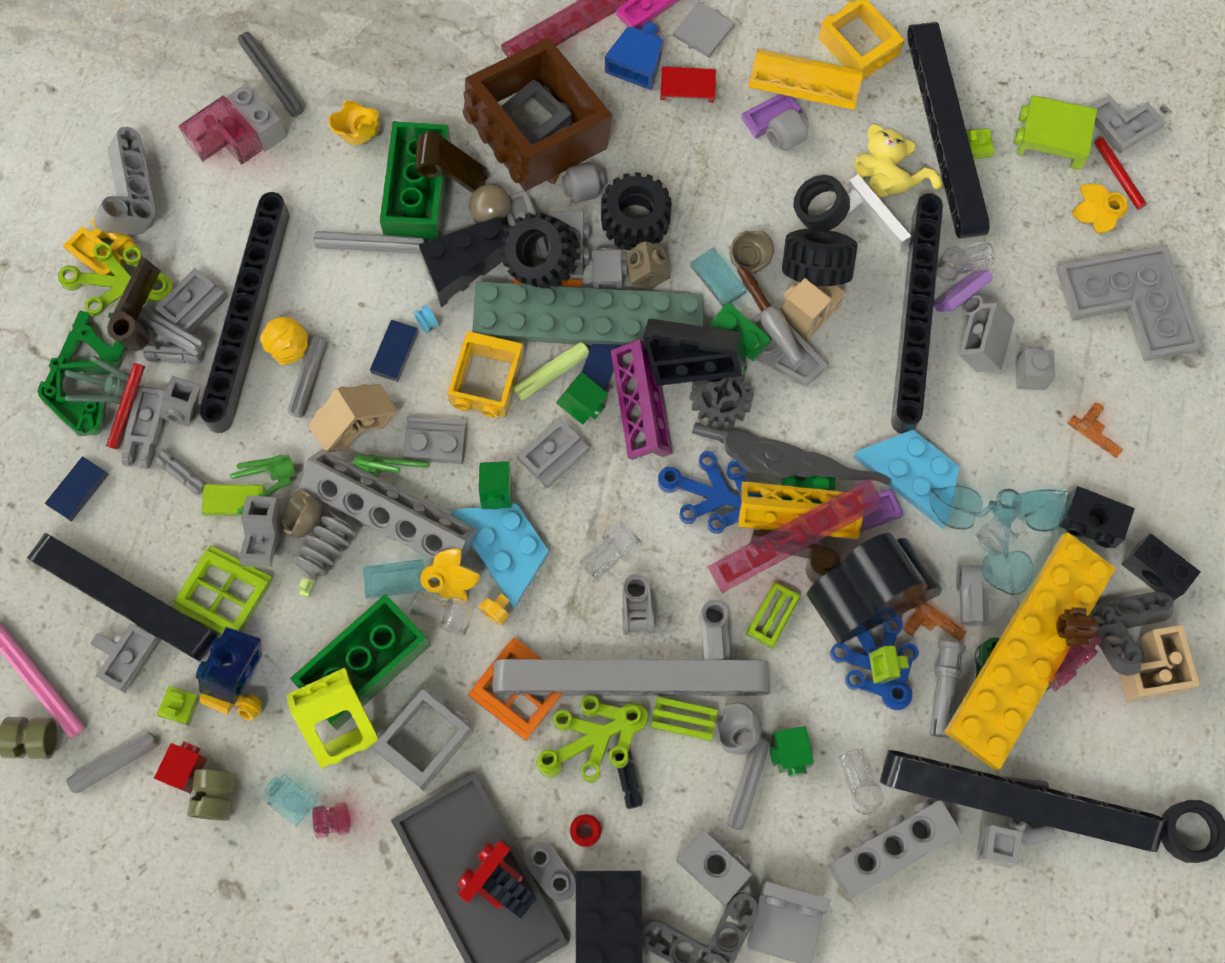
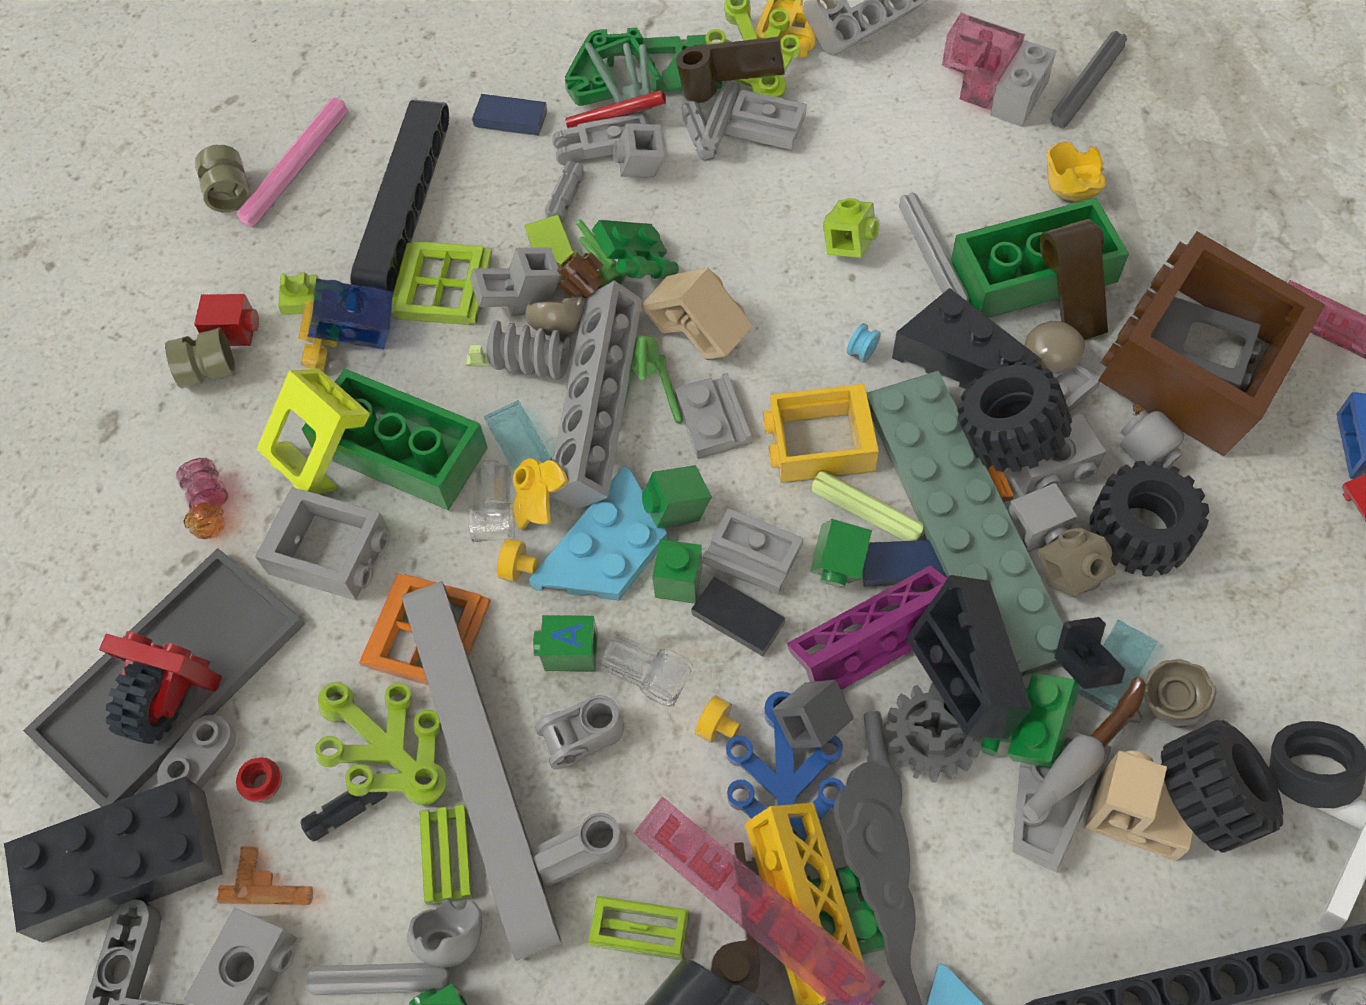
camera: 75 degrees right, 10 degrees down
(112, 762) = (220, 262): light grey axle -> none
(124, 655) = (336, 224): light grey hinge -> none
(247, 322) = (780, 168): black beam -> none
(270, 438) = (635, 247): none -> green plate
(283, 482) = (580, 274): none -> reddish brown gear
(285, 340) = (764, 217): yellow hair -> none
(288, 799) = (215, 434): clear light blue bracket -> none
(307, 376) = (734, 257): light grey axle -> none
(328, 286) = (850, 228): none -> lime brick
(361, 825) = (205, 520): none -> clear orange plate
(394, 350) = (808, 329): dark blue tile -> none
(551, 504) = (677, 571): none -> green brick
(572, 594) = (567, 643): none -> green brick
(594, 481) = (738, 616): none -> black tile
(659, 846) = (260, 885): none -> clear orange hose
(663, 519) = (716, 720): none -> yellow tile
(686, 459) = (813, 714): none -> dark grey brick
(713, 289) = (1085, 656): none -> black bracket

